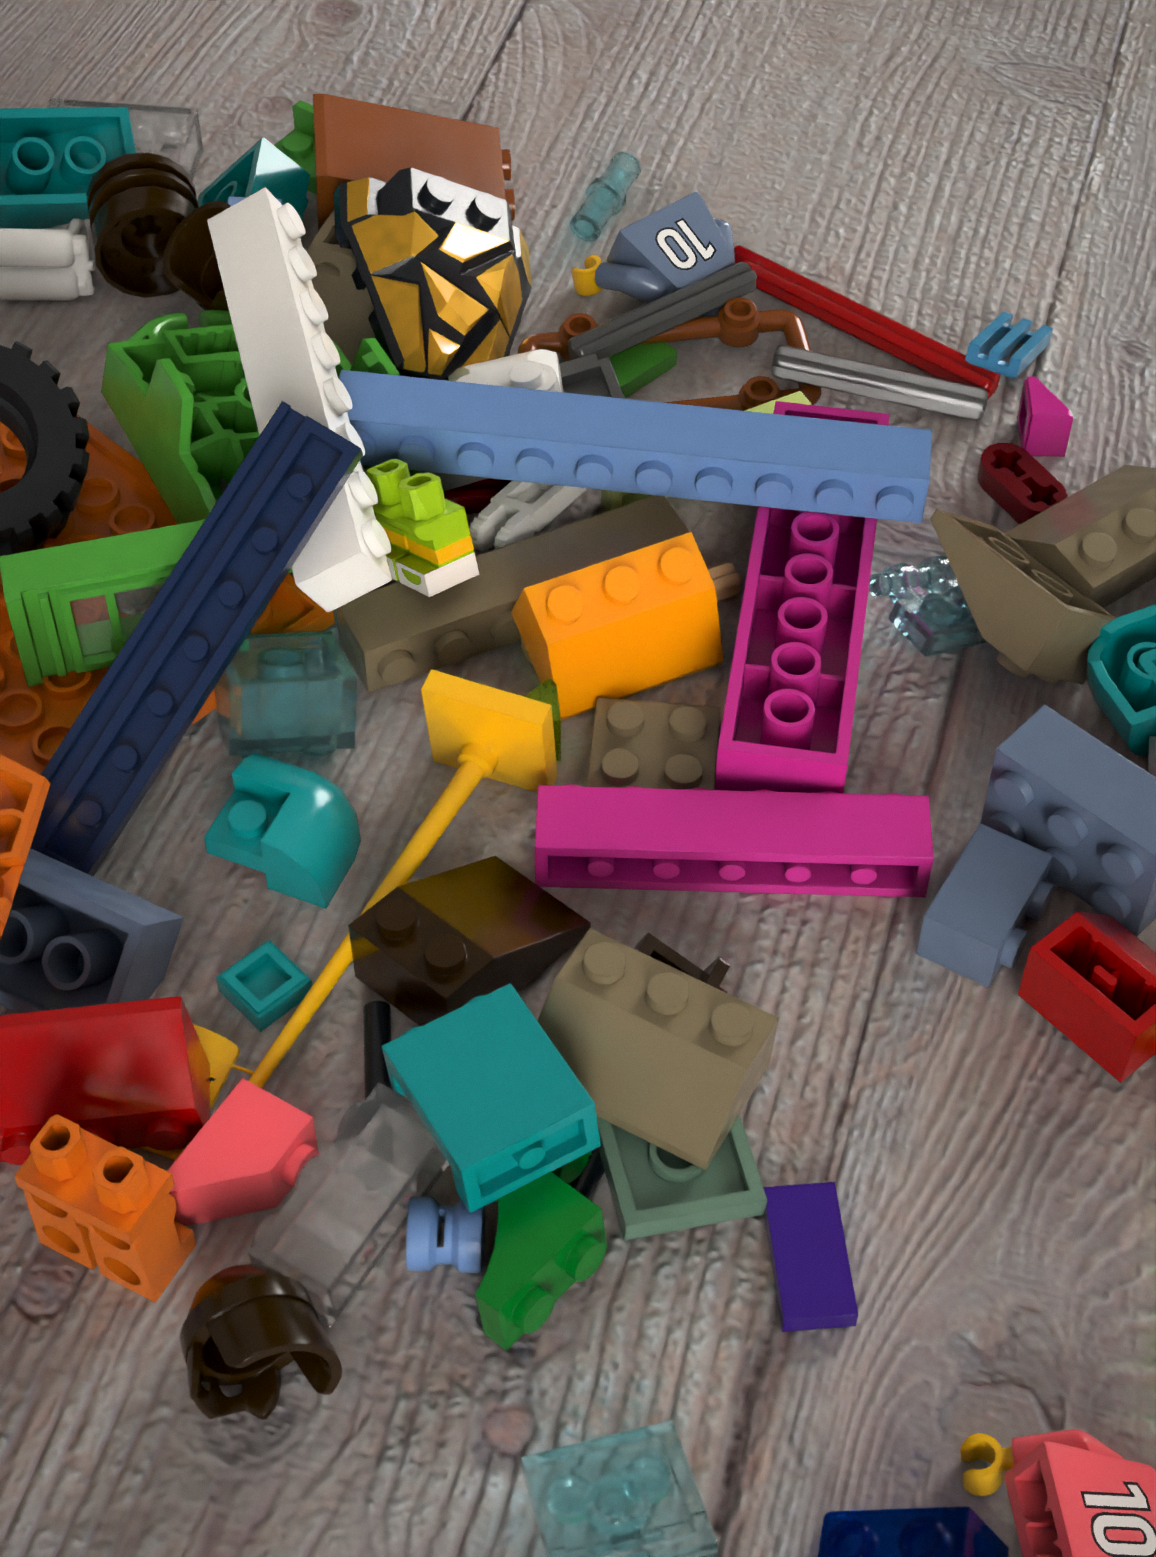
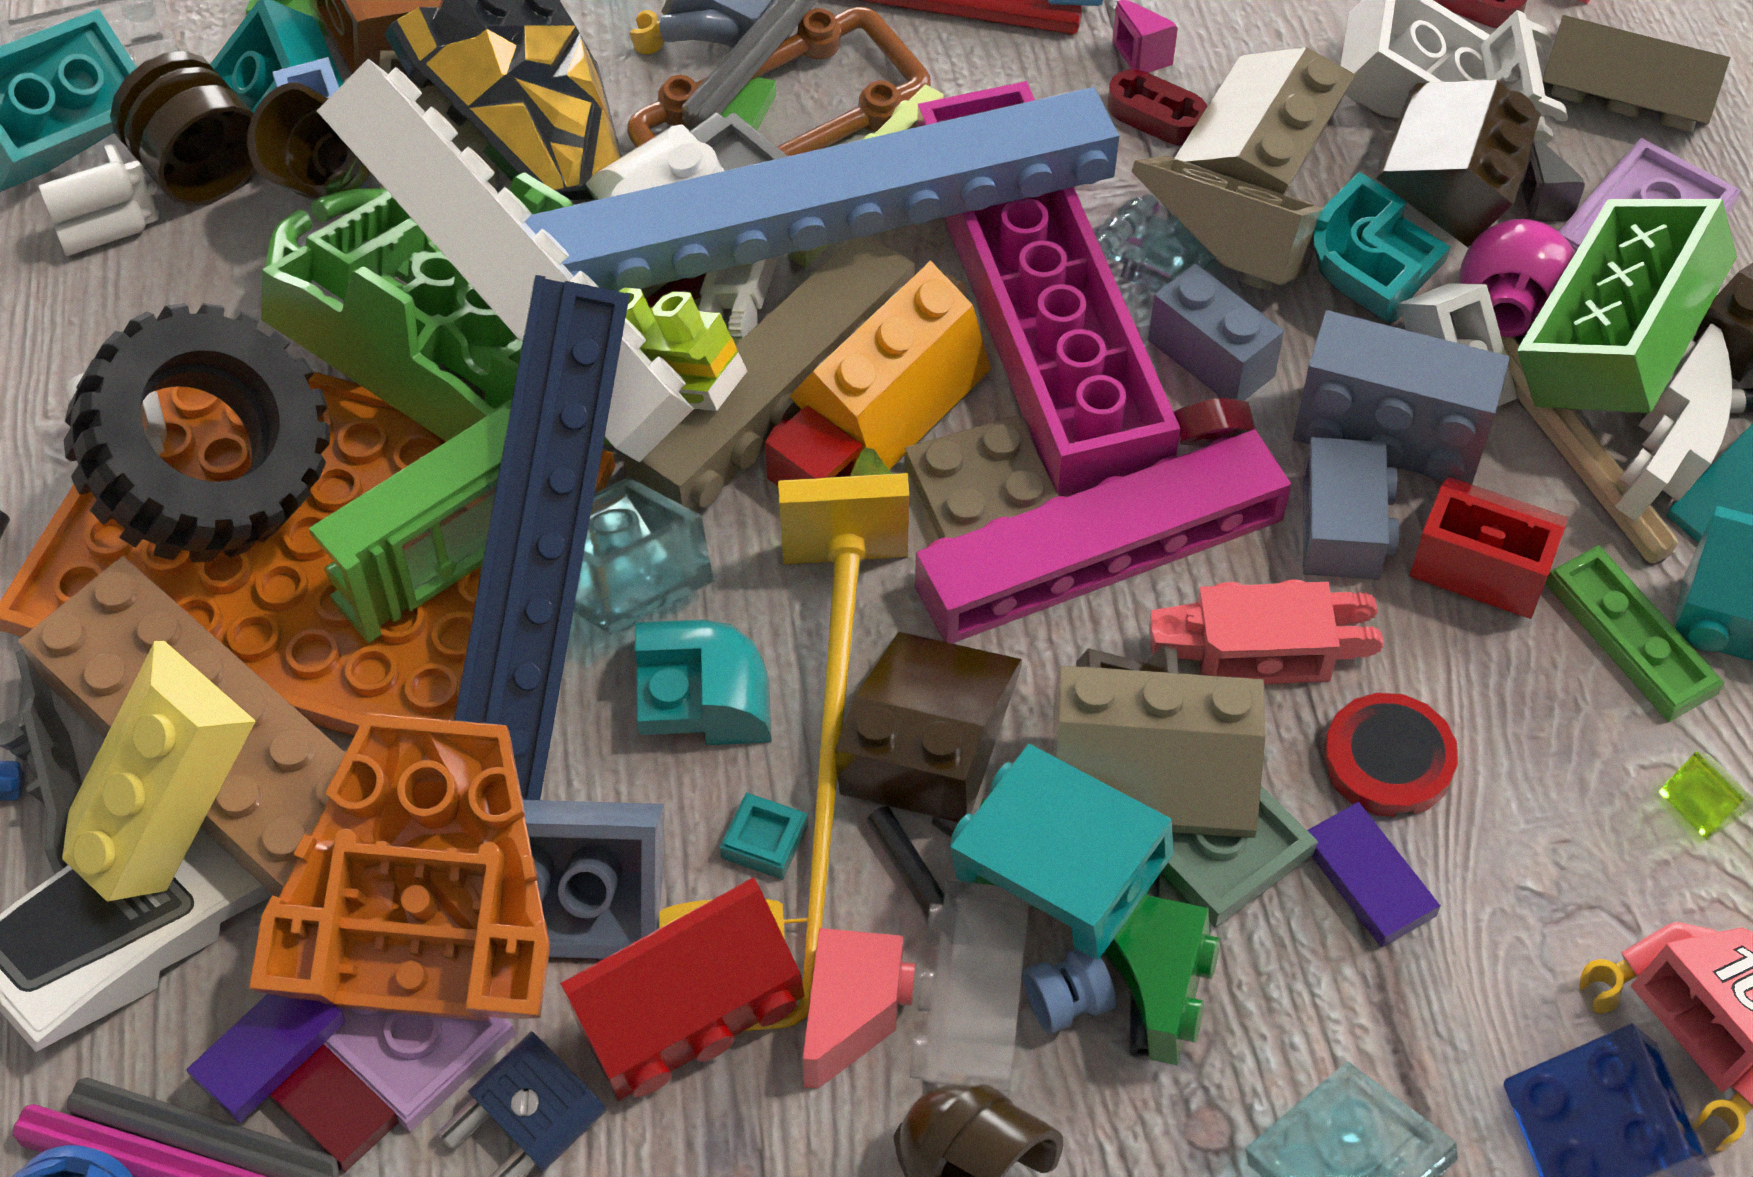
camera: 25 degrees left, 5 degrees up
(104, 1207) = (772, 1080): orange hips -> none
(504, 661) = (809, 449): none -> red brick
(841, 988) = (1269, 630): none -> coral hinge
(879, 382) = (980, 50): axle -> none
(890, 770) = (1213, 419): none -> dark red beam
(898, 1152) = (1390, 754): none -> tile
(948, 702) = (1215, 334): none -> sand blue brick

